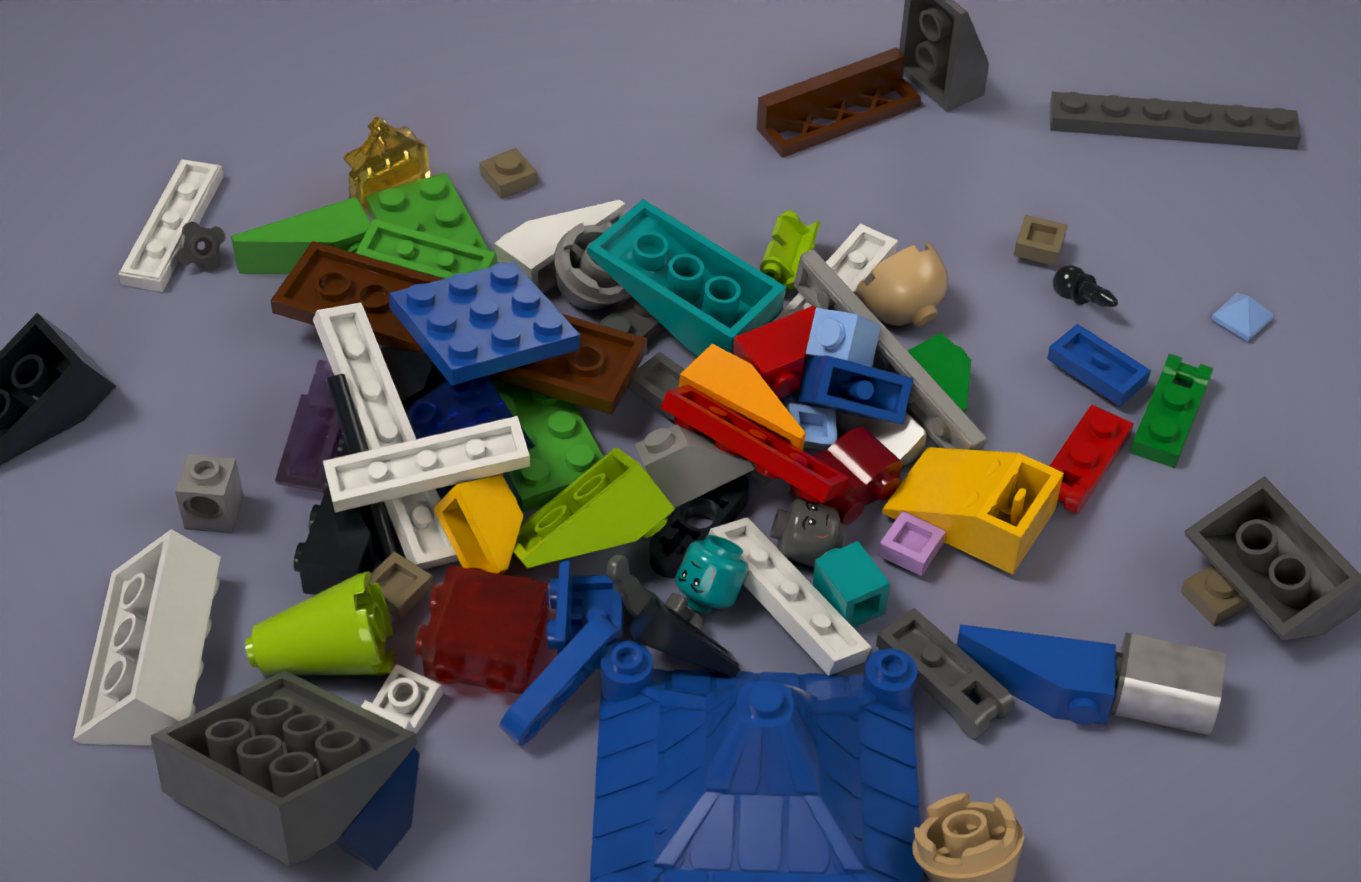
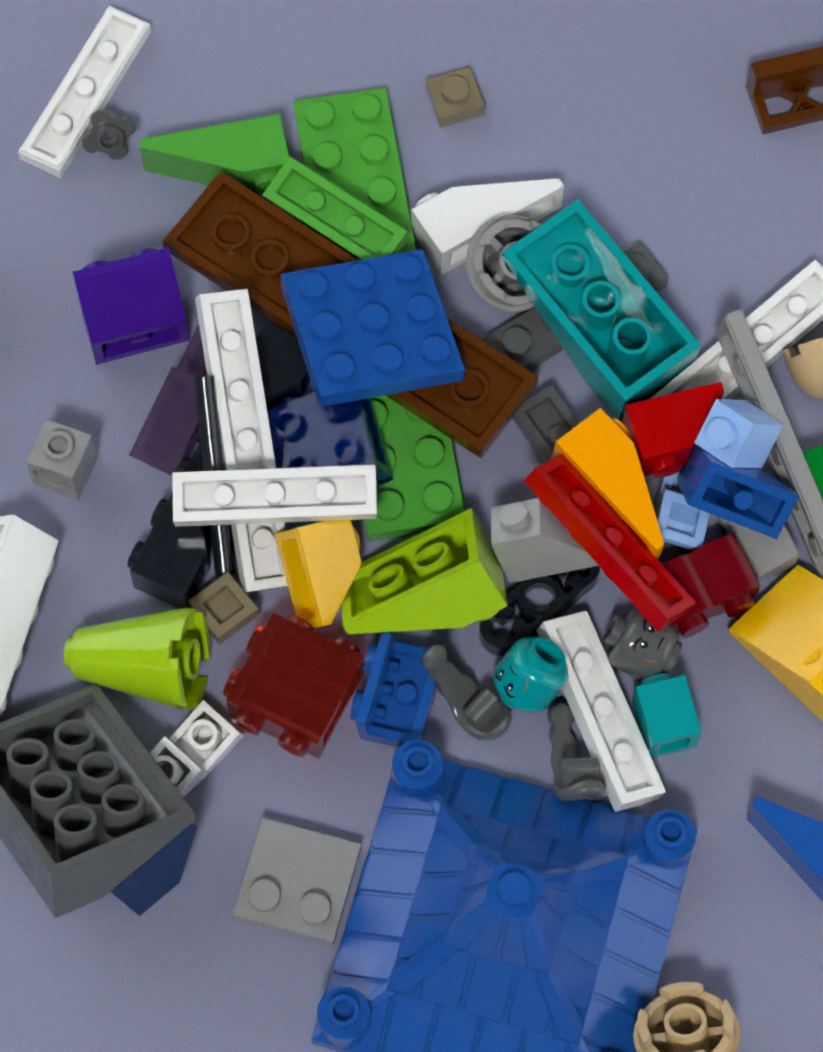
camera: 15 degrees right, 20 degrees up
(250, 357) = (131, 305): none -> dark purple slope
(386, 160) = (322, 69): clear yellow slope -> none
(531, 808) = (297, 882): none -> light grey plate
(559, 680) = (353, 761): blue beam -> none
(671, 633) = (476, 743): black slope -> none
(774, 649) = (573, 776): none -> dark grey piece
(790, 241) = (723, 293): lime hinge -> none
(911, 543) = (744, 678): lavender plate -> none
(948, 673) = (730, 833): dark grey plate -> none

